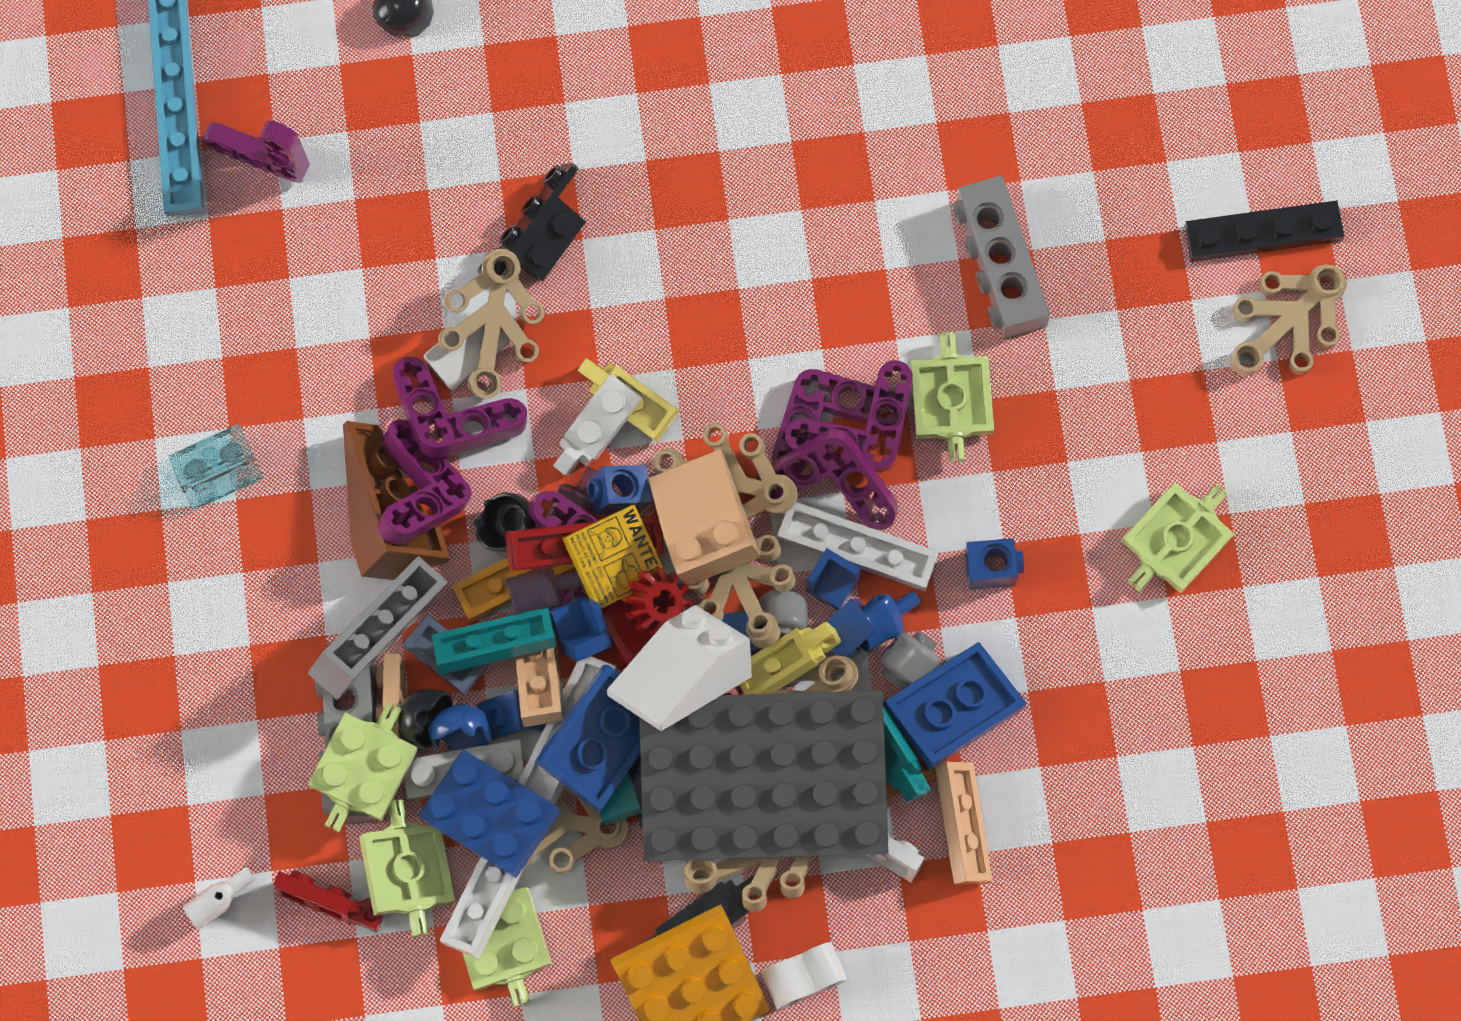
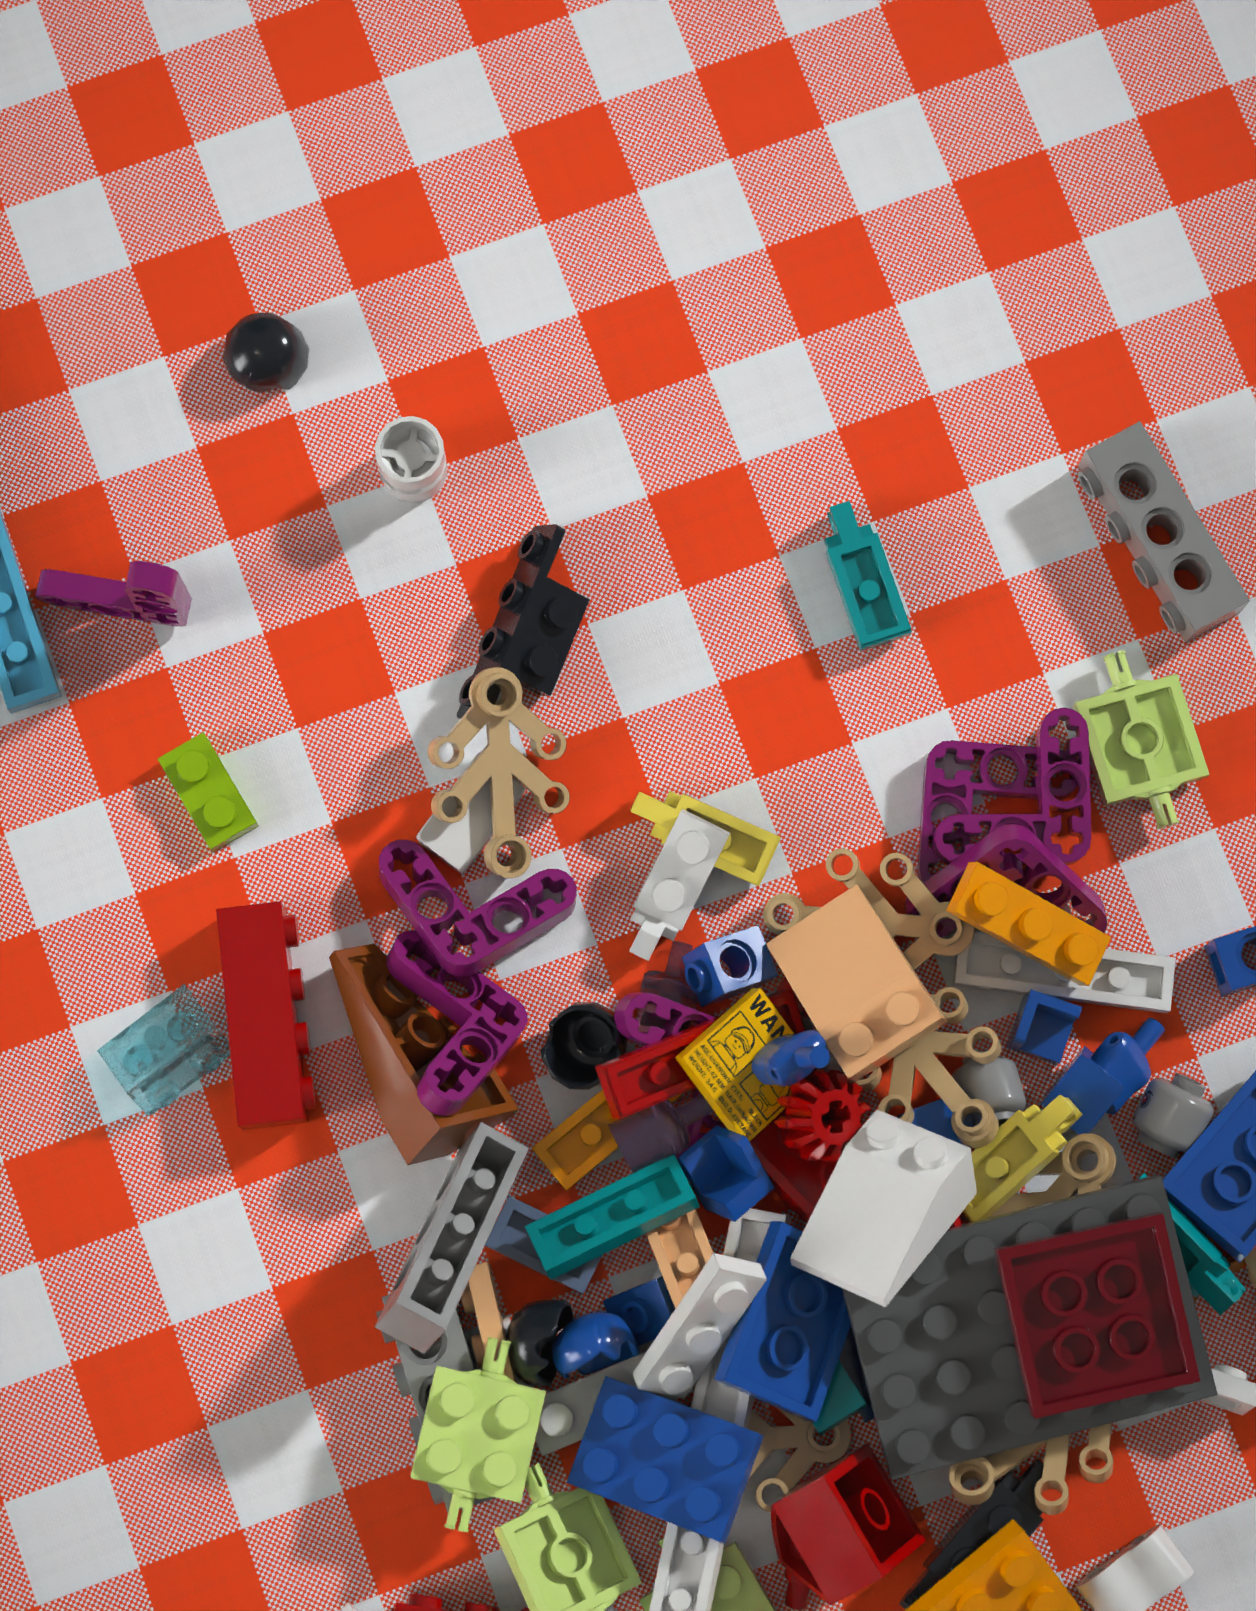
camera: 20 degrees left, 5 degrees up
(288, 298) = (208, 792): none -> lime plate
(288, 456) = (263, 1015): none -> red brick
(484, 99) = (411, 459): none -> white wheel
(533, 723) = (699, 1325): none -> white plate
(602, 889) = (841, 1529): none -> red piece
(641, 555) = (790, 1058): none -> blue piece
(782, 248) = (864, 580): none -> teal hinge
(810, 772) = (1097, 1315): none -> dark red plate
(835, 502) = (1028, 923): none -> light orange plate

